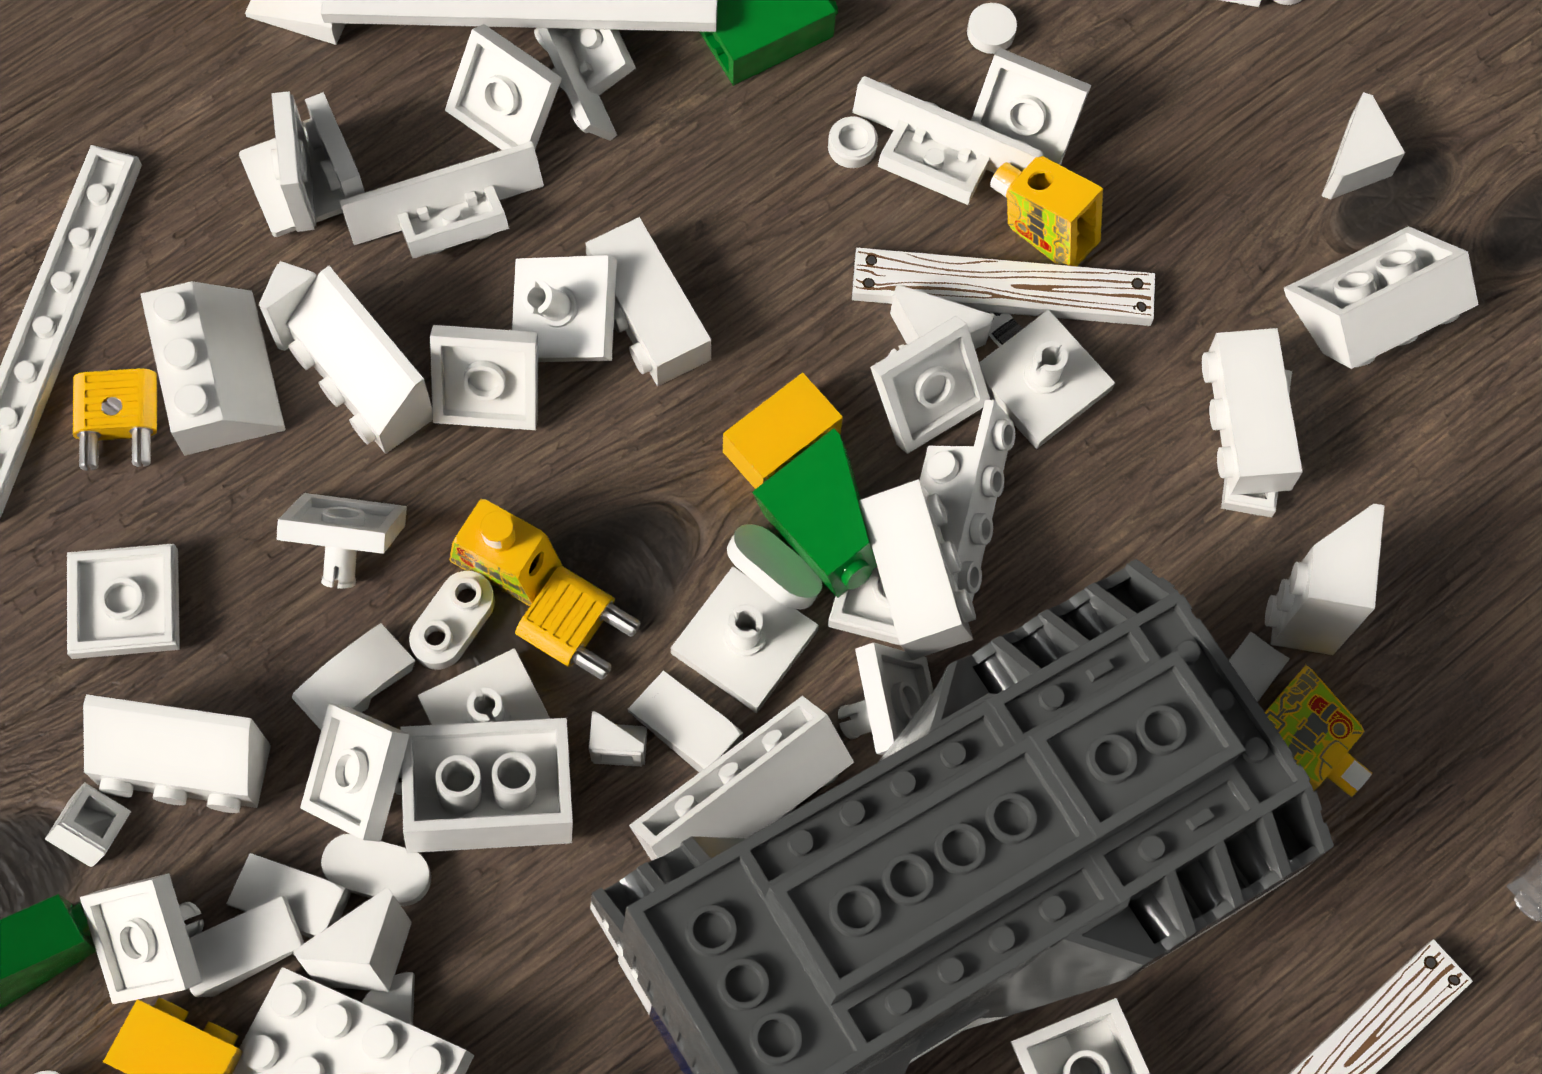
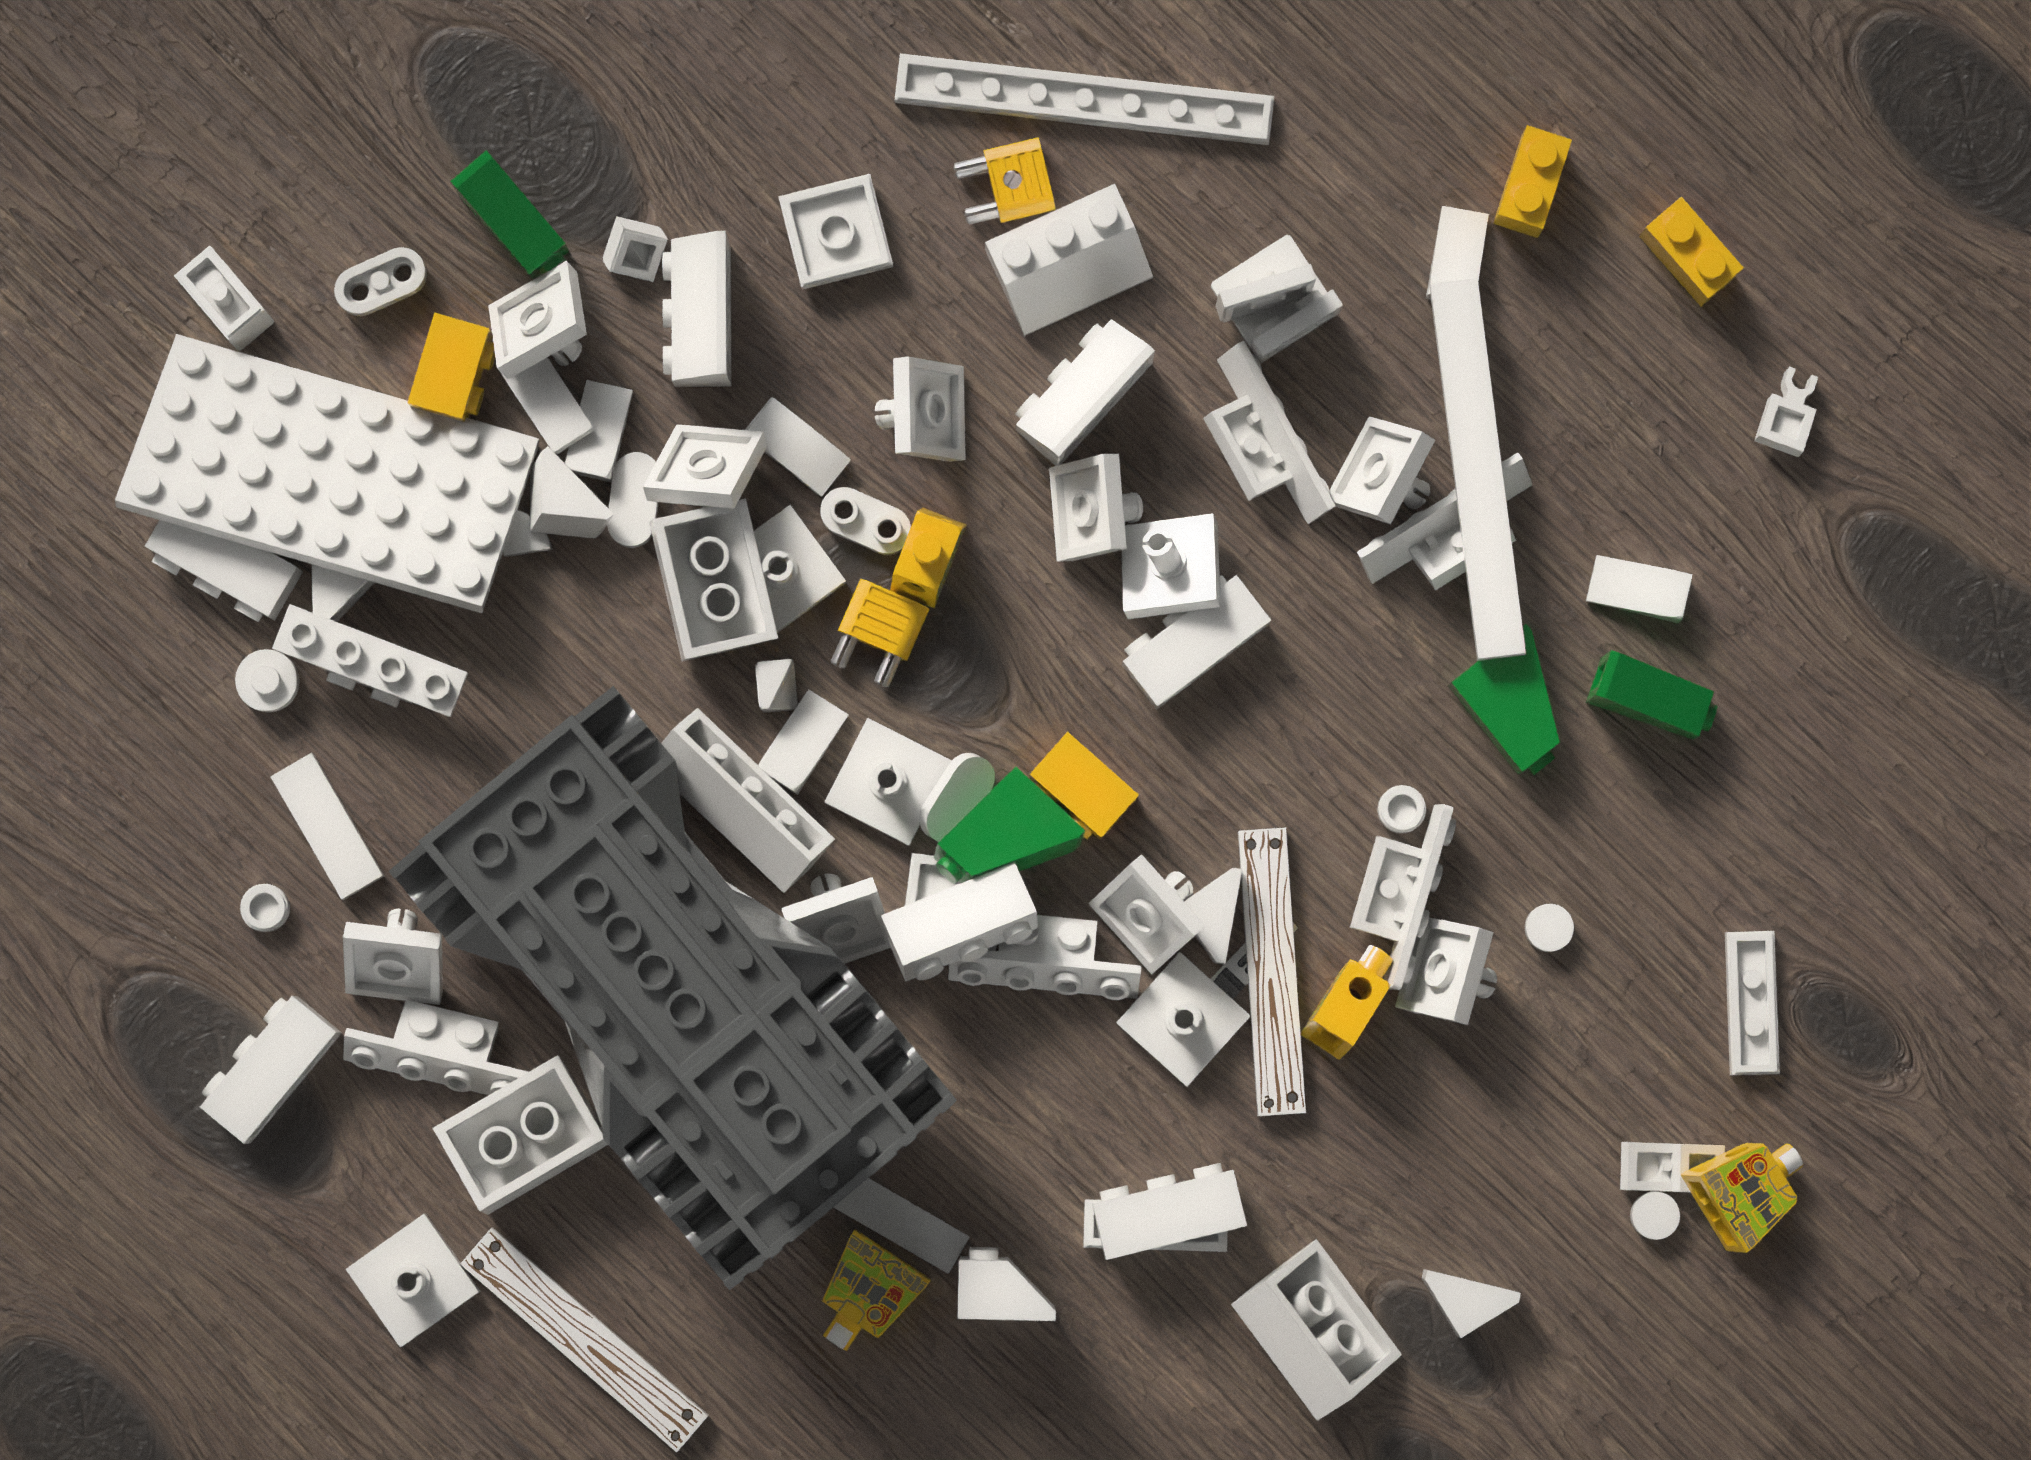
camera: 85 degrees right, 15 degrees up
(281, 299) = (1129, 314): white slope -> none

